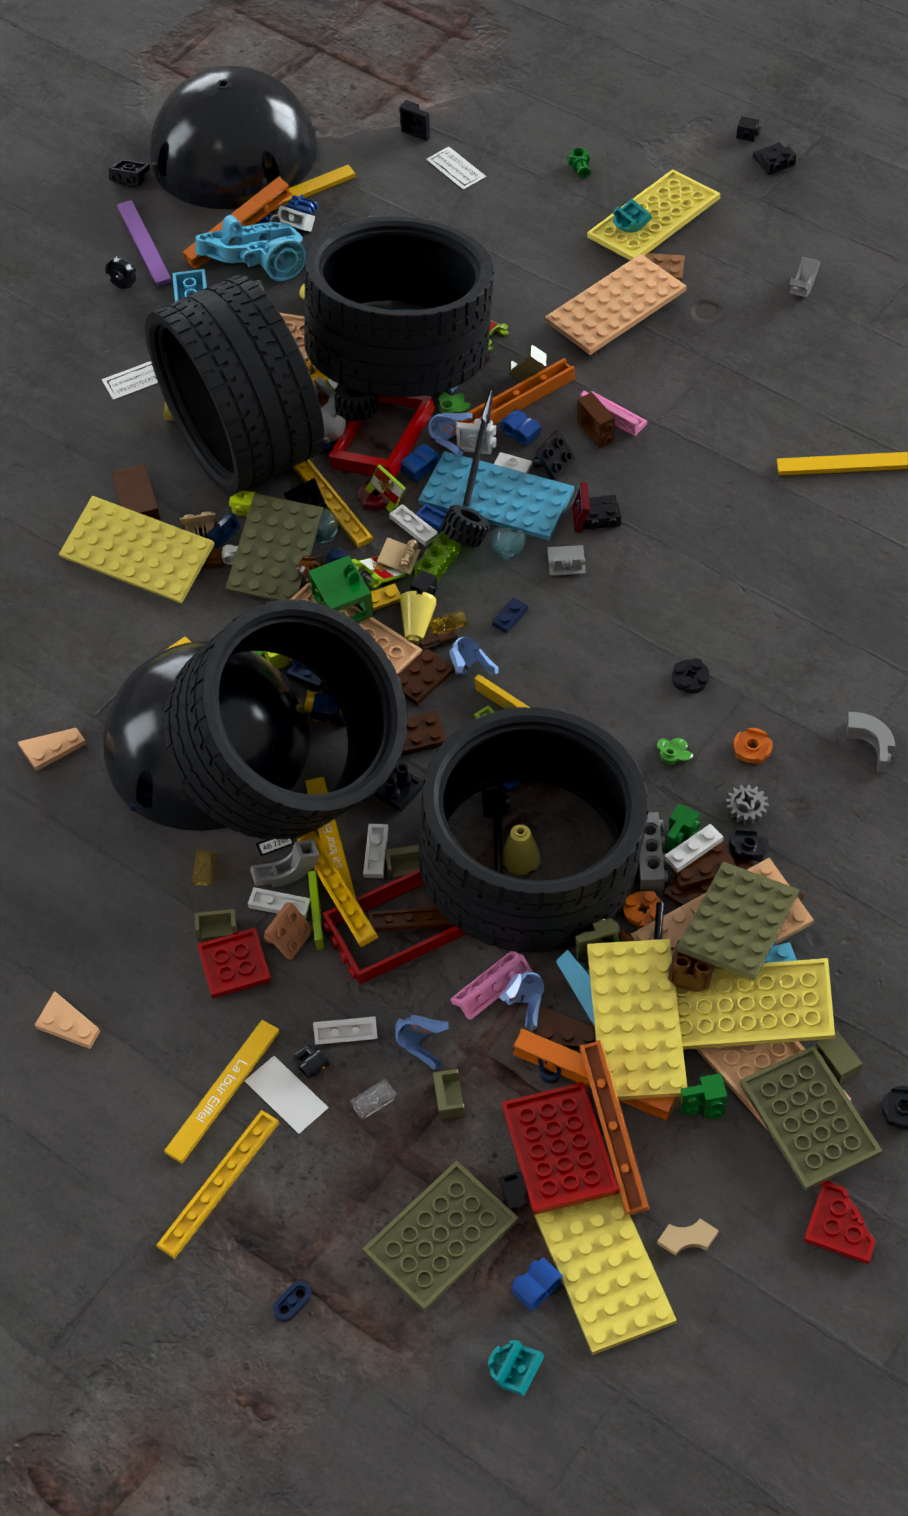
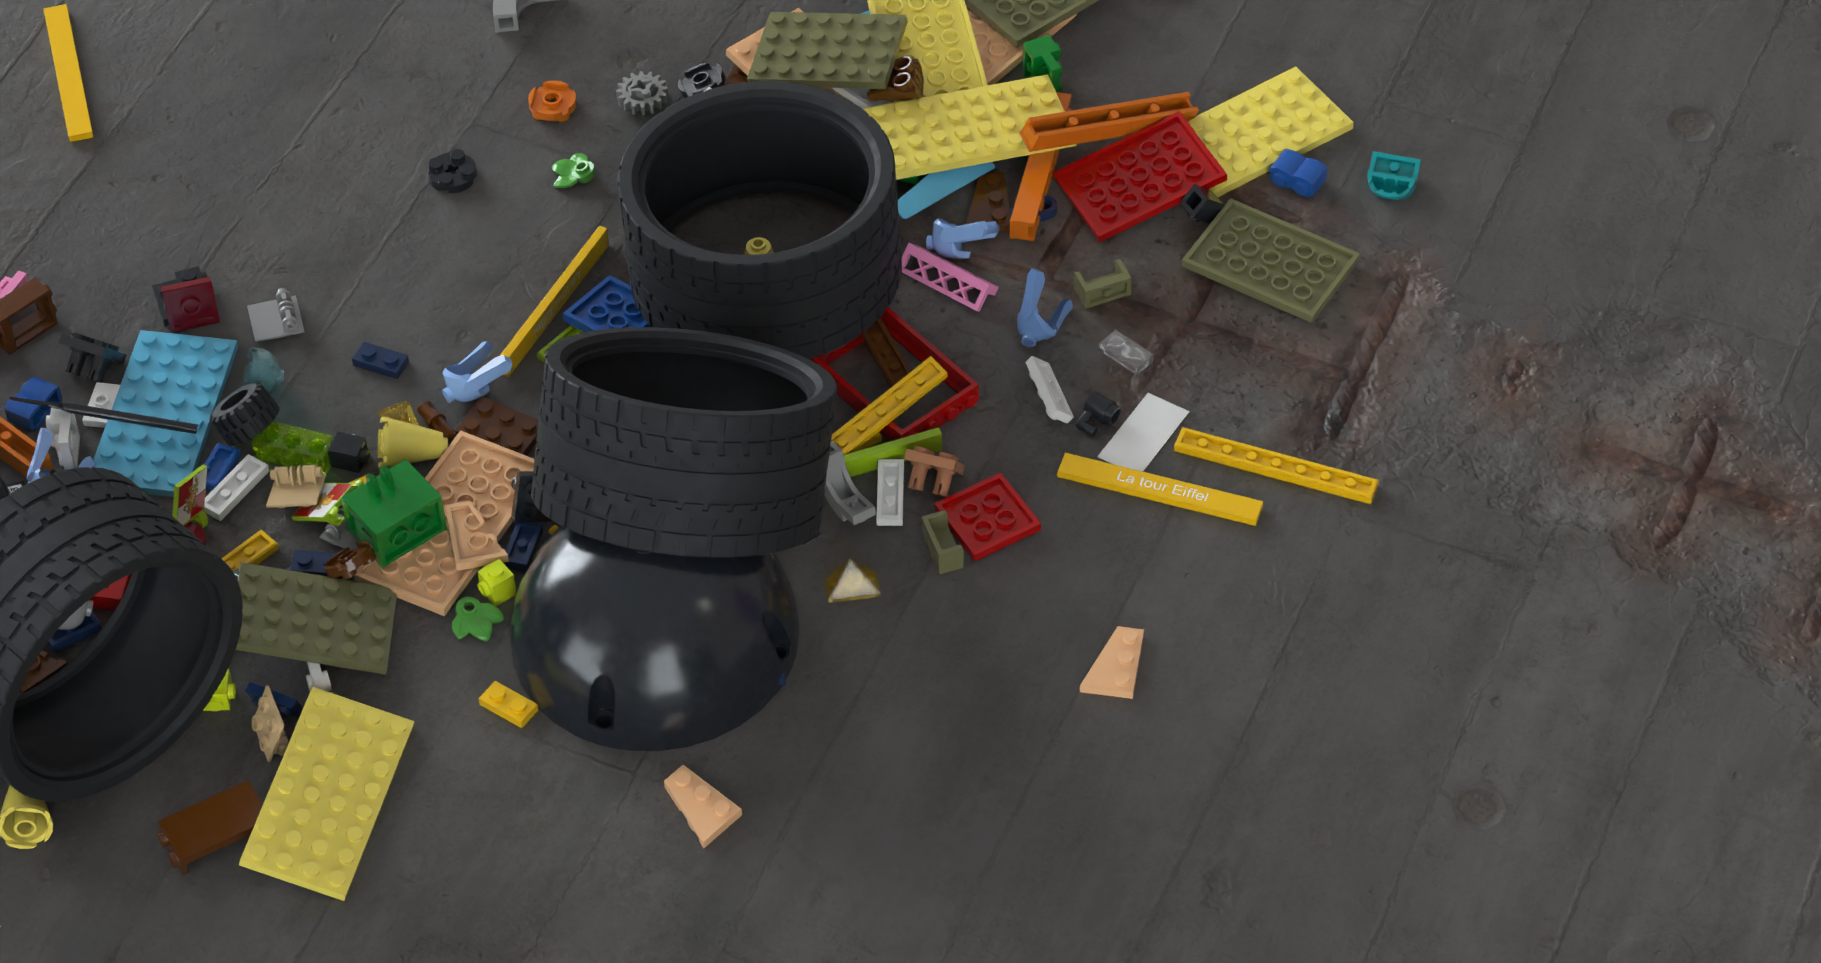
camera: 105 degrees left, 5 degrees down
(290, 1301) = (1391, 365): dark blue plate -> none
(679, 1238) = (1197, 68): tan tile -> none

